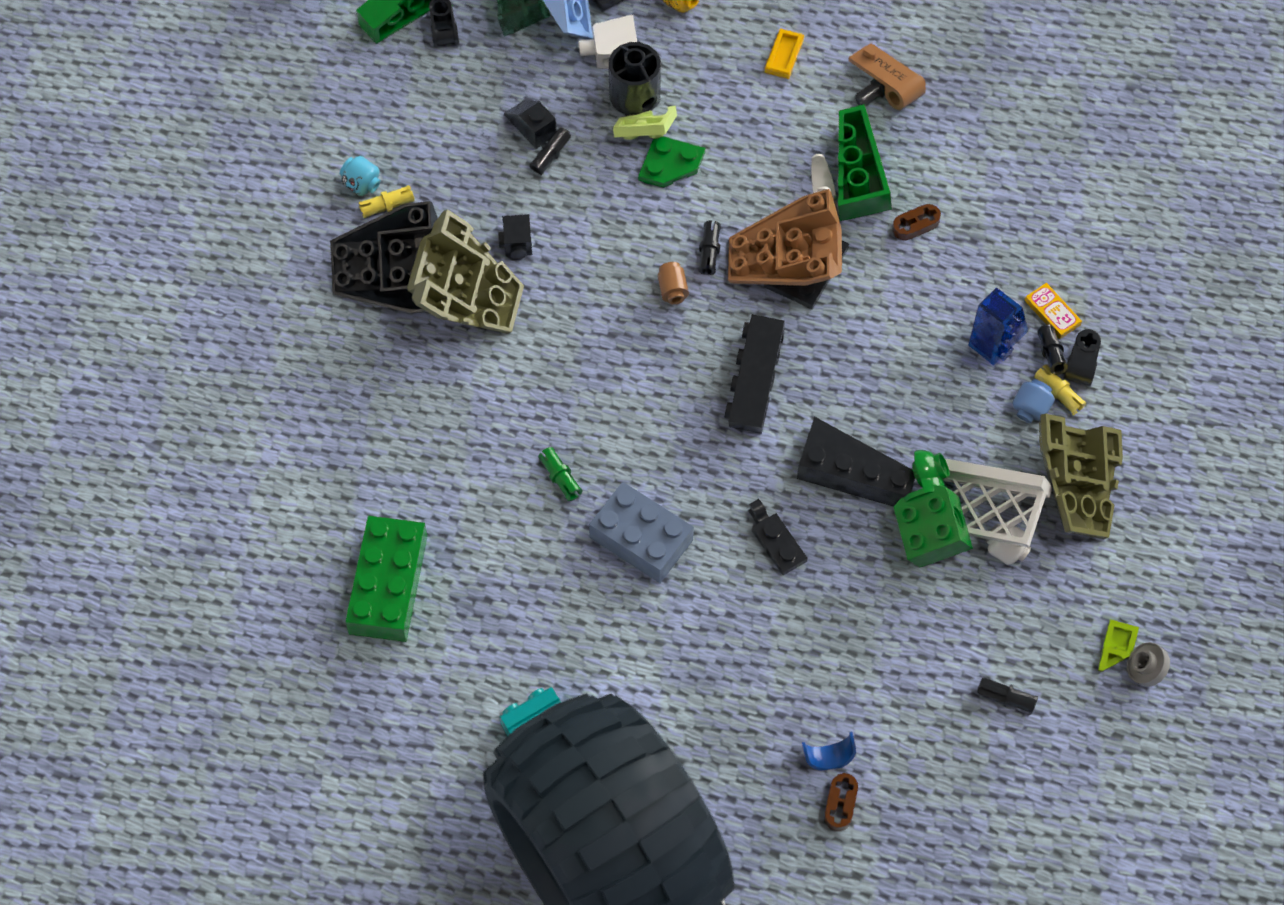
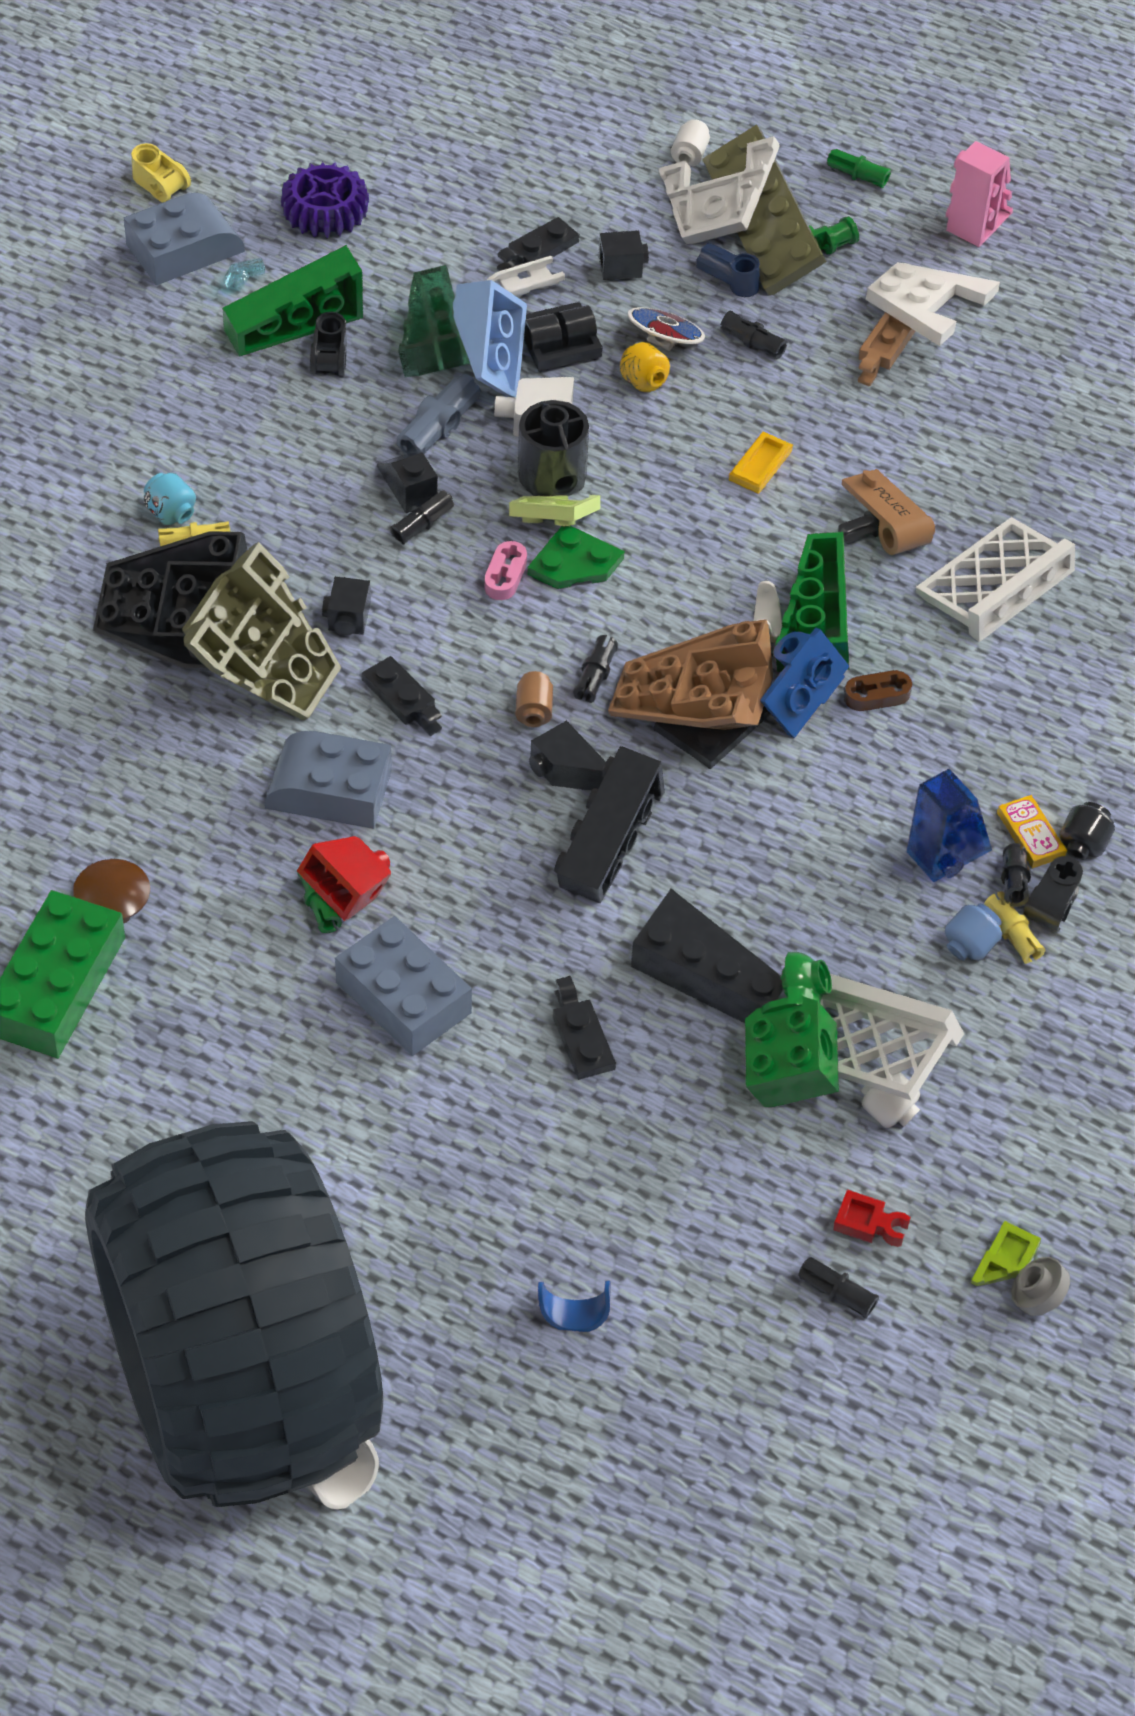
camera: 10 degrees right, 10 degrees down
(408, 499) = (114, 885): none -> reddish brown dish
(539, 65) = (439, 415): none -> sand blue piece
(541, 378) = (331, 778): none -> sand blue brick
(575, 298) = (403, 694): none -> black plate
(577, 454) = (345, 873): none -> red torso
(617, 181) = (499, 568): none -> bright pink beam
(710, 326) = (566, 759): none -> black slope
(847, 803) = (581, 1376): reddish brown beam -> none
(869, 222) = (809, 678): none -> blue piece
(993, 126) = (1017, 589): none -> white fence
(1012, 639) = (865, 1216): none -> red plate
(1081, 473) = (1012, 1029): olive wedge -> none
(1093, 303) = (1087, 830): none -> black head

